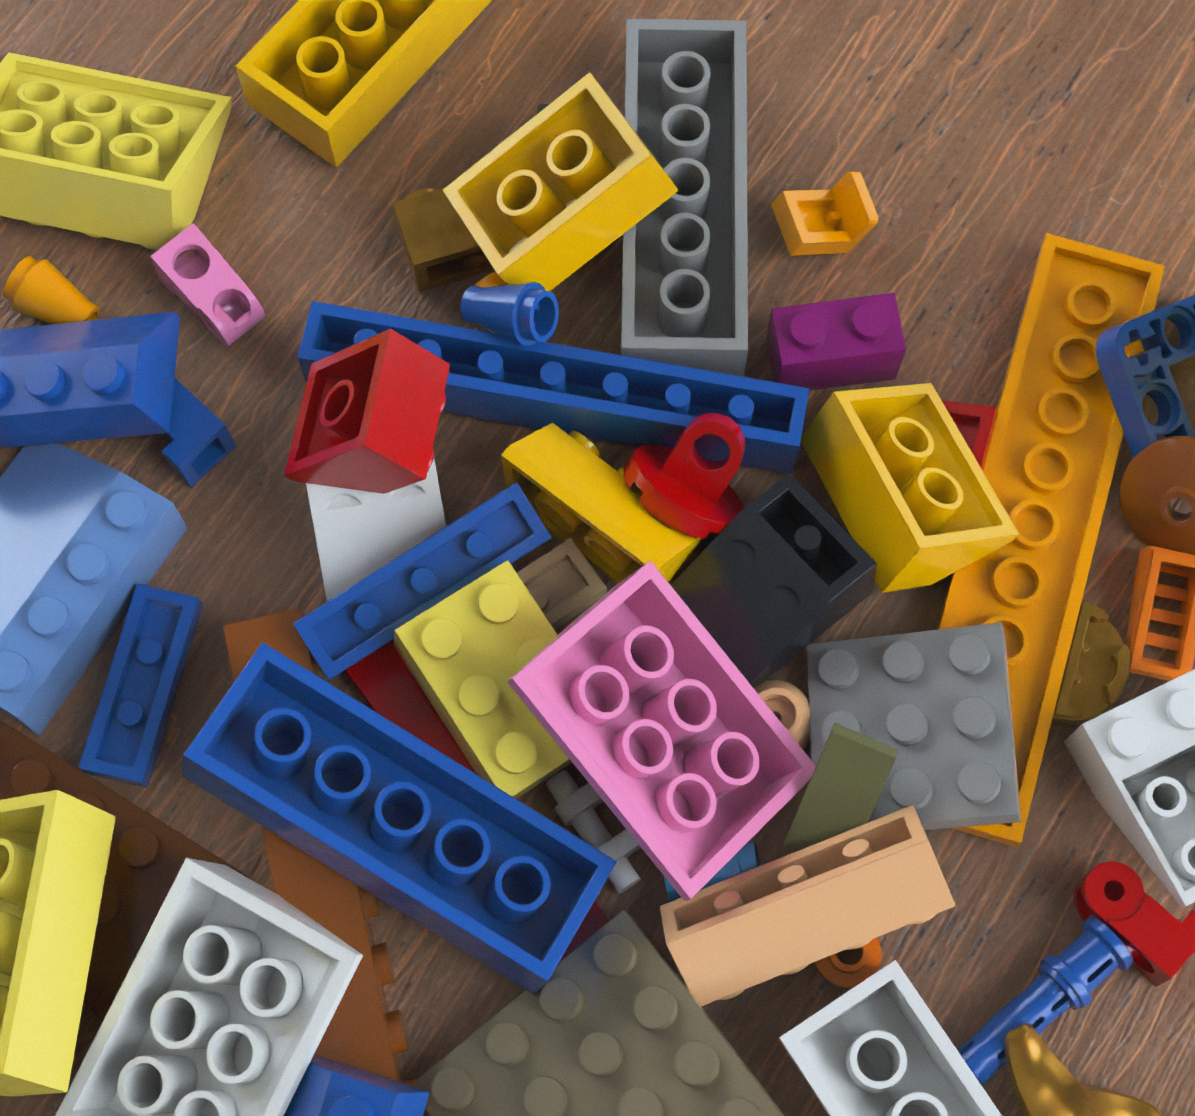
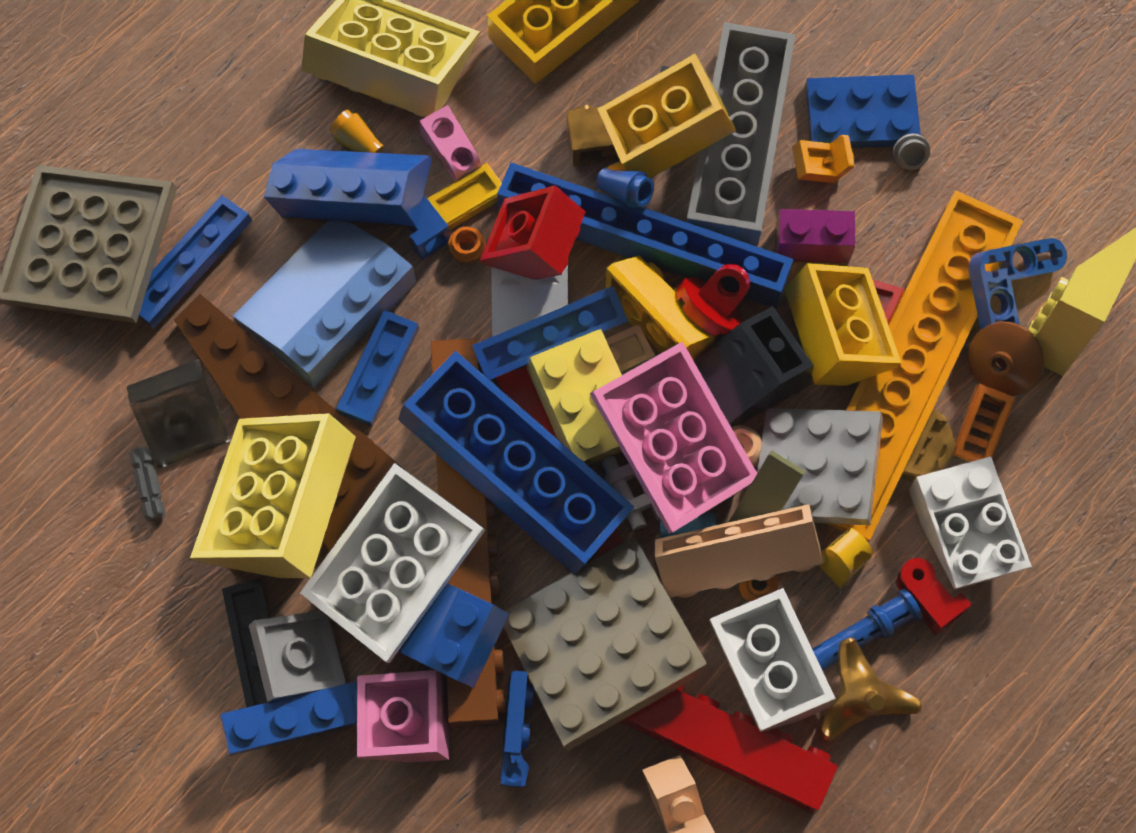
camera: 10 degrees right, 0 degrees up
(249, 370) = (467, 196): none -> yellow tile
(253, 436) = (464, 235): none -> orange plate
(882, 123) = (866, 108): none -> blue plate
(964, 182) = (911, 151): none -> light grey plate
(987, 880) = (846, 557): none -> yellow leg

